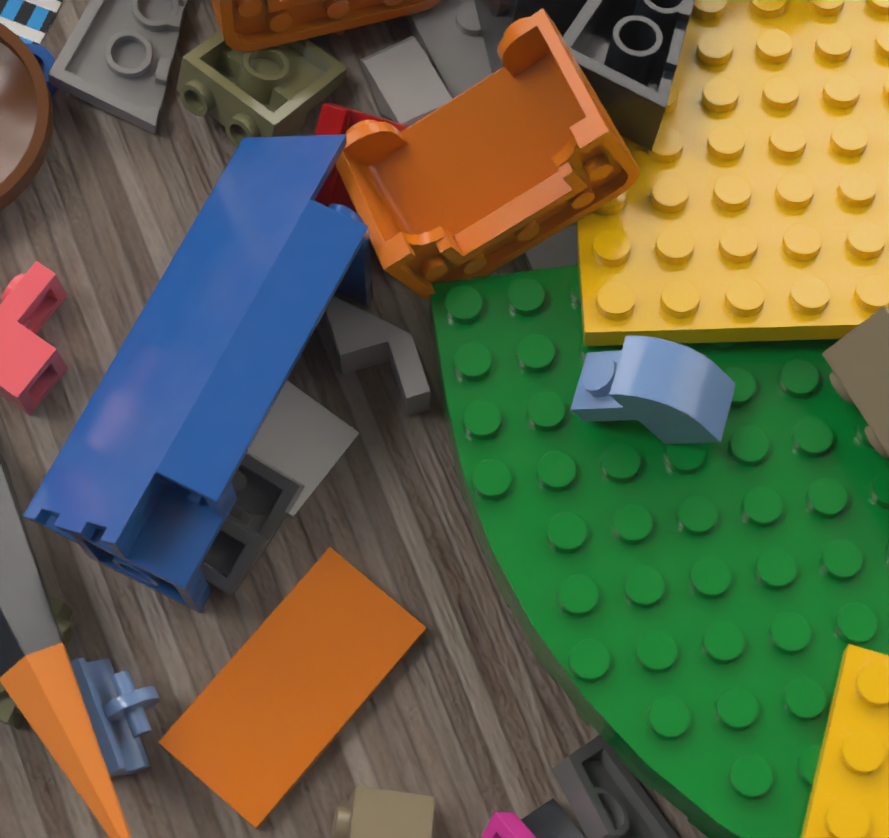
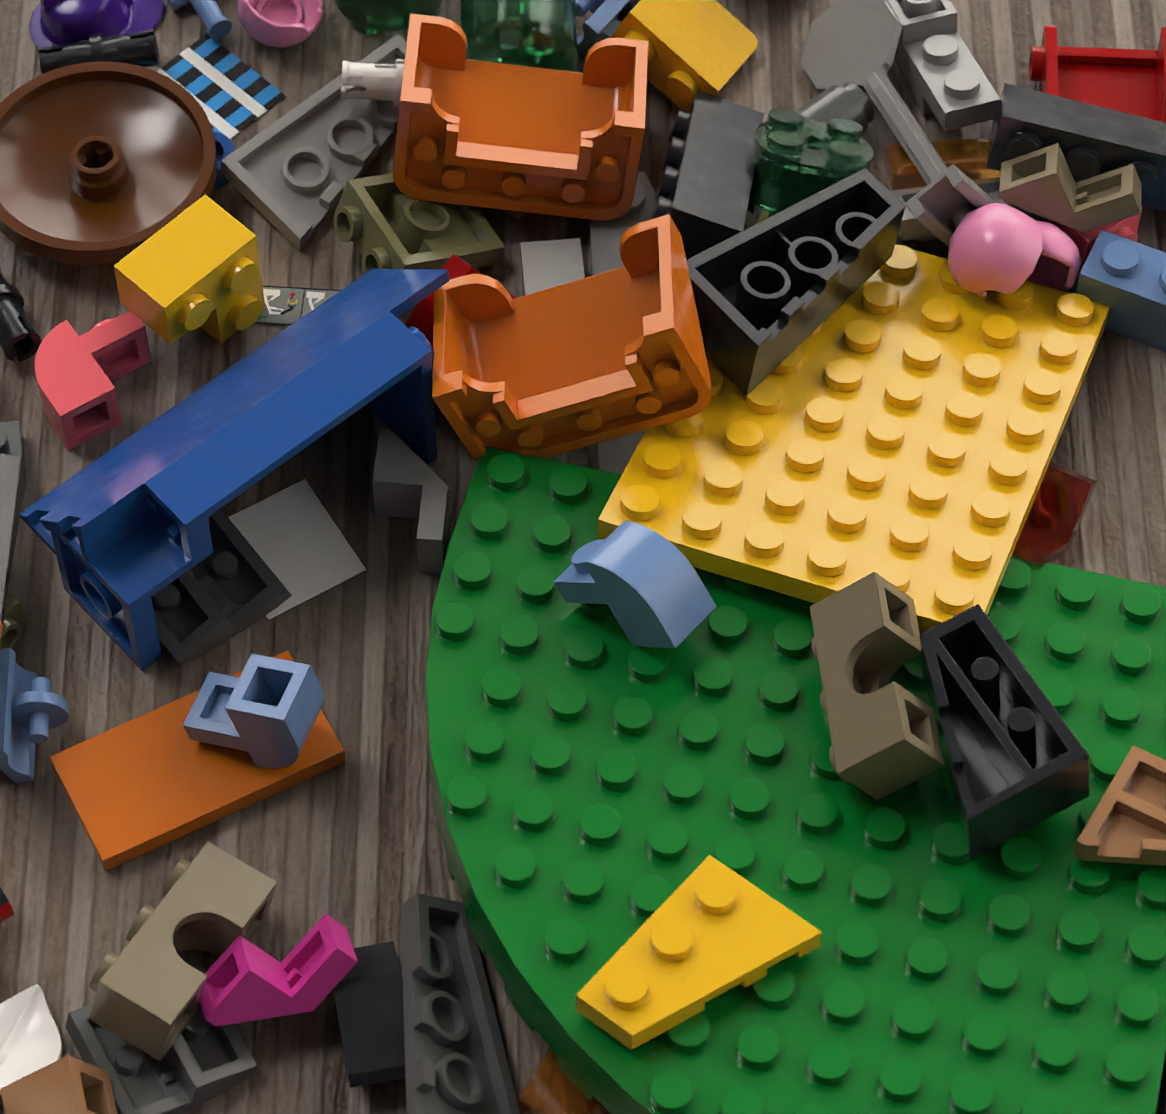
camera: 25 degrees right, 15 degrees down
(81, 208) = (194, 275): none -> yellow brick
(177, 190) = (290, 304): none -> light grey sticker
(346, 633) = (259, 712): none -> medium blue brick

